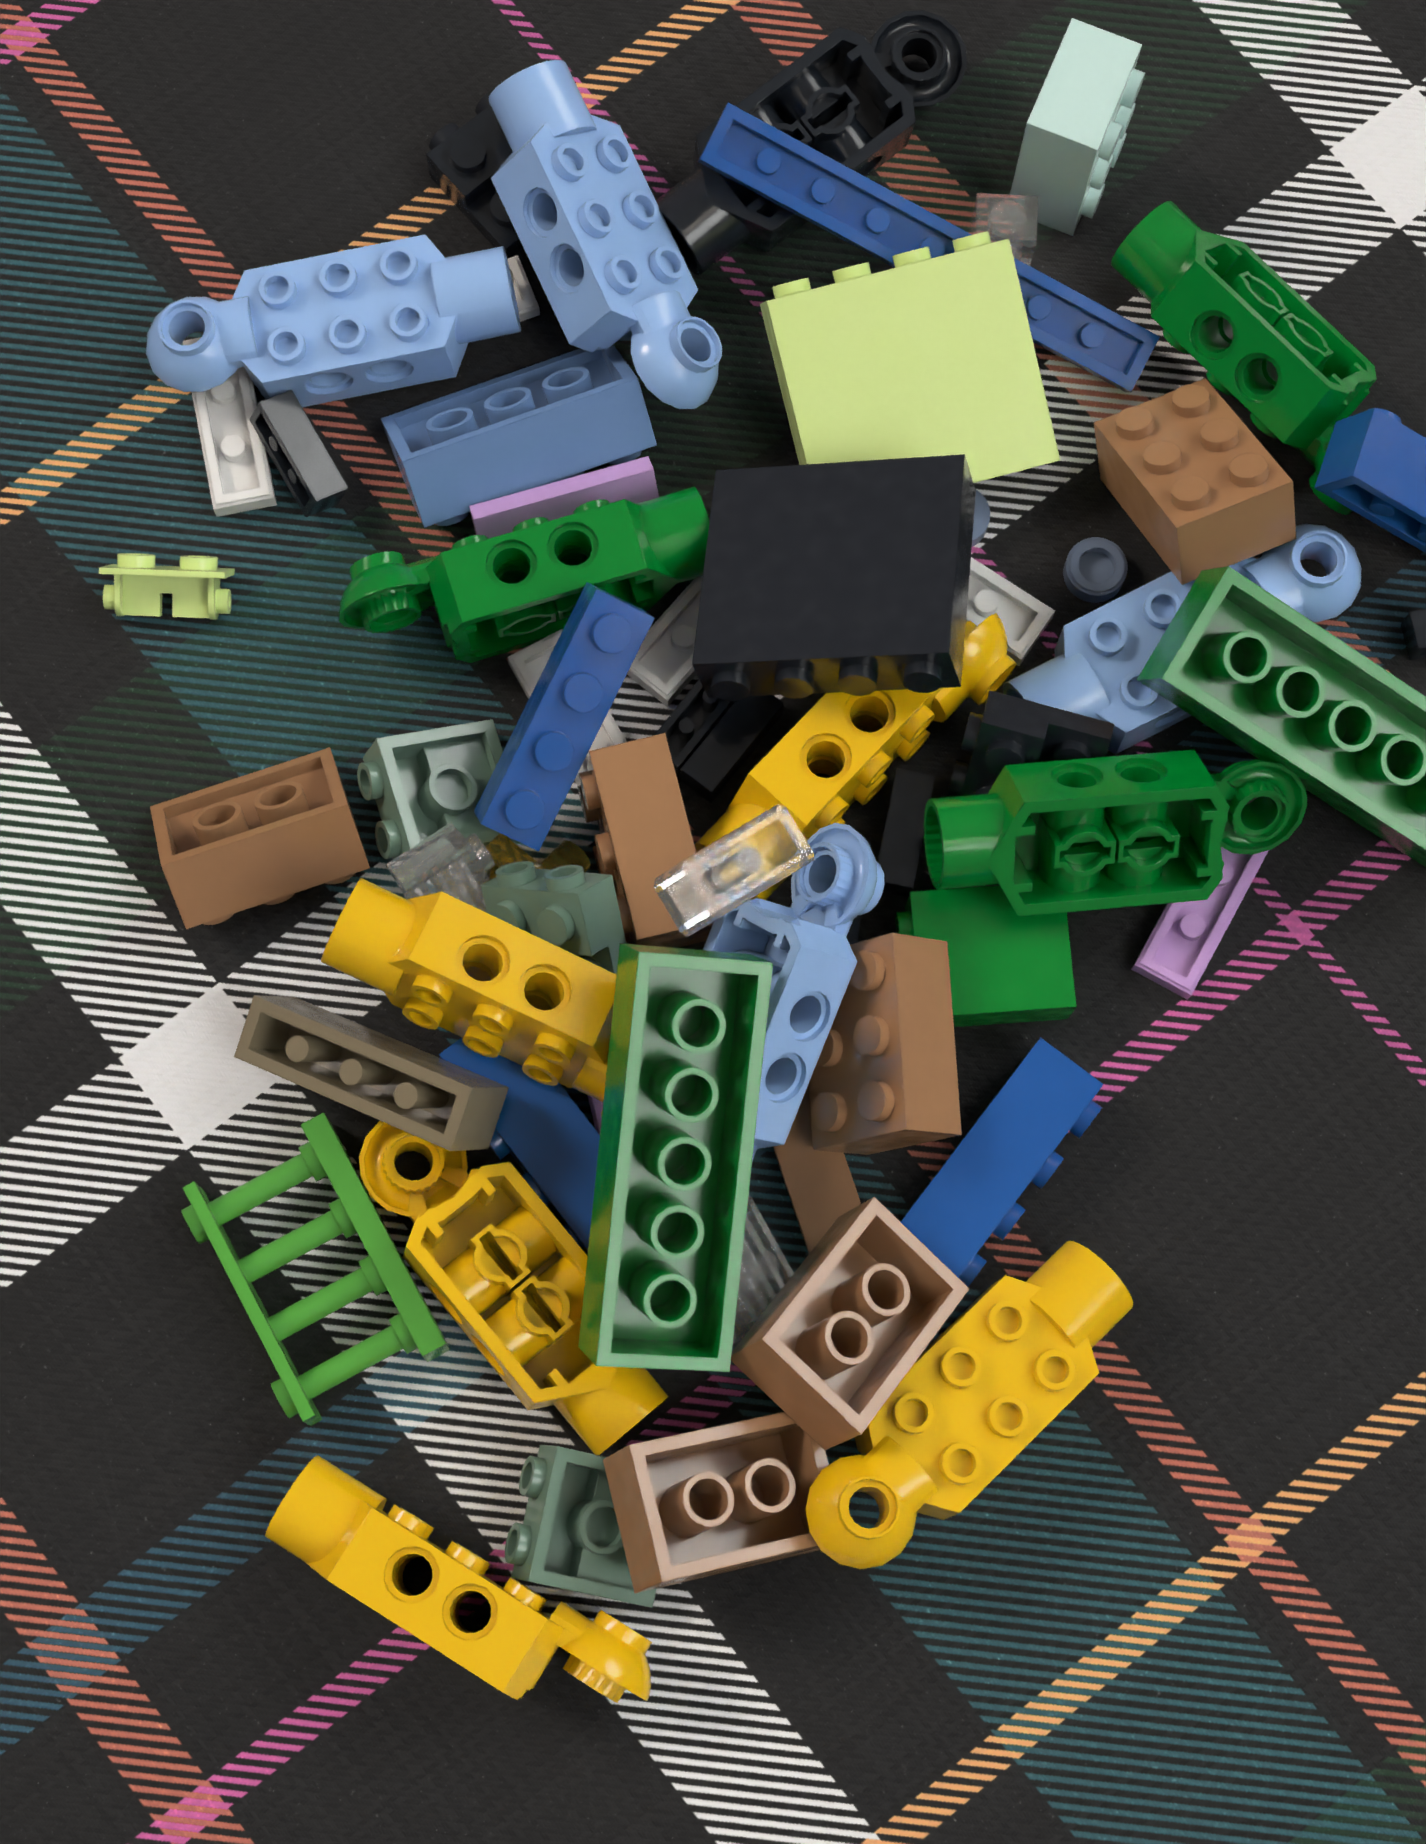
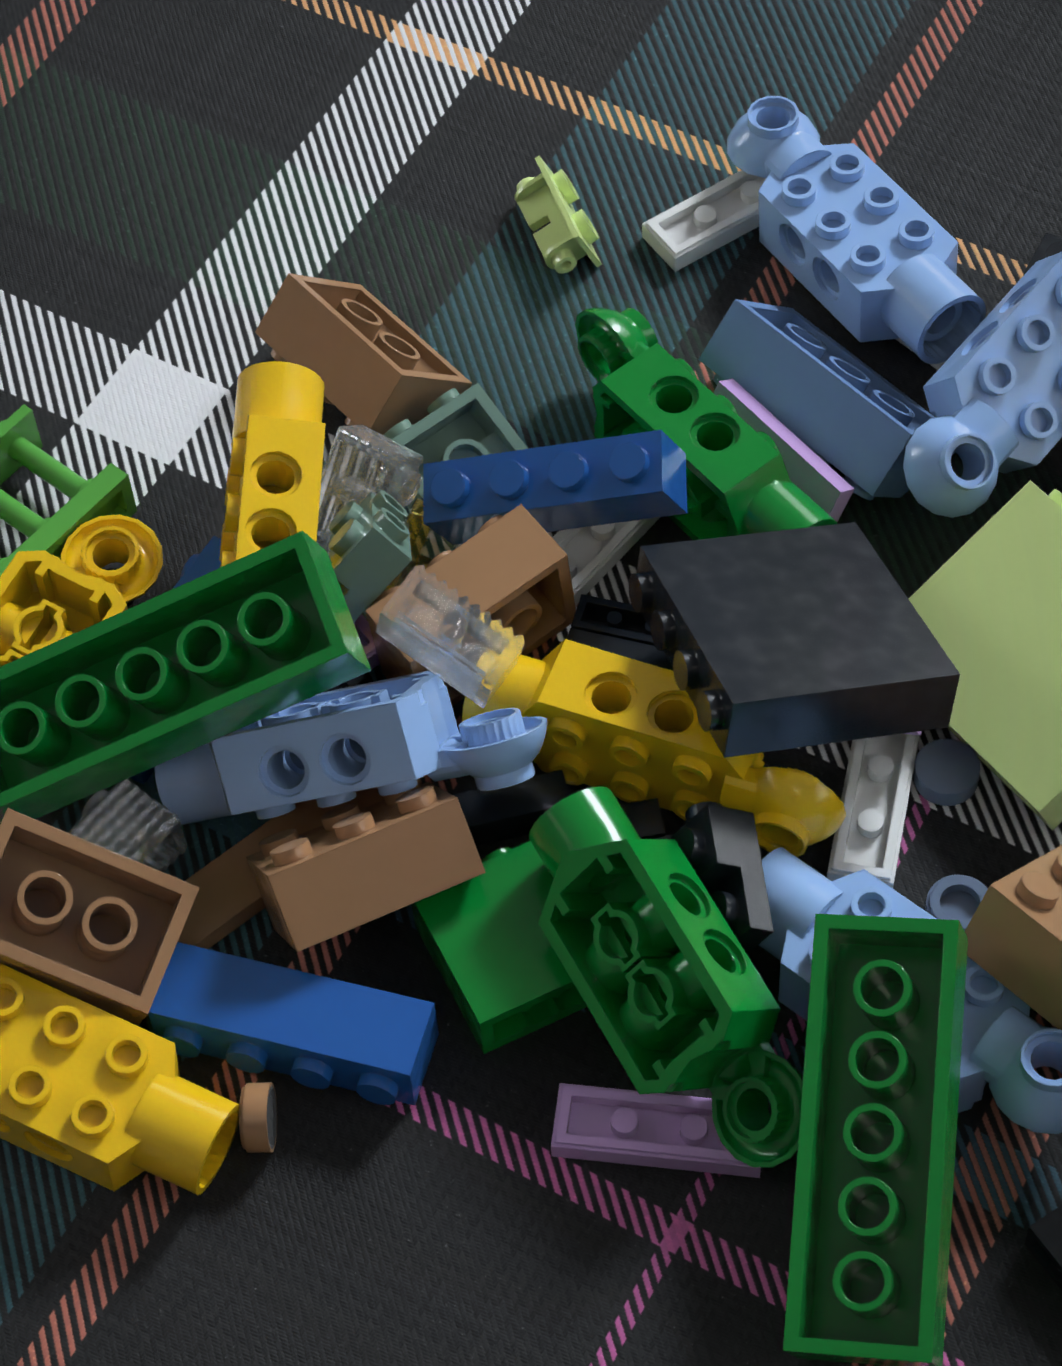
camera: 75 degrees right, 20 degrees down
(298, 453) = (720, 256): piece -> none
(371, 1072) = (171, 488): dark tan brick -> none
(1064, 1226) = (258, 1117): none -> medium nougat tile

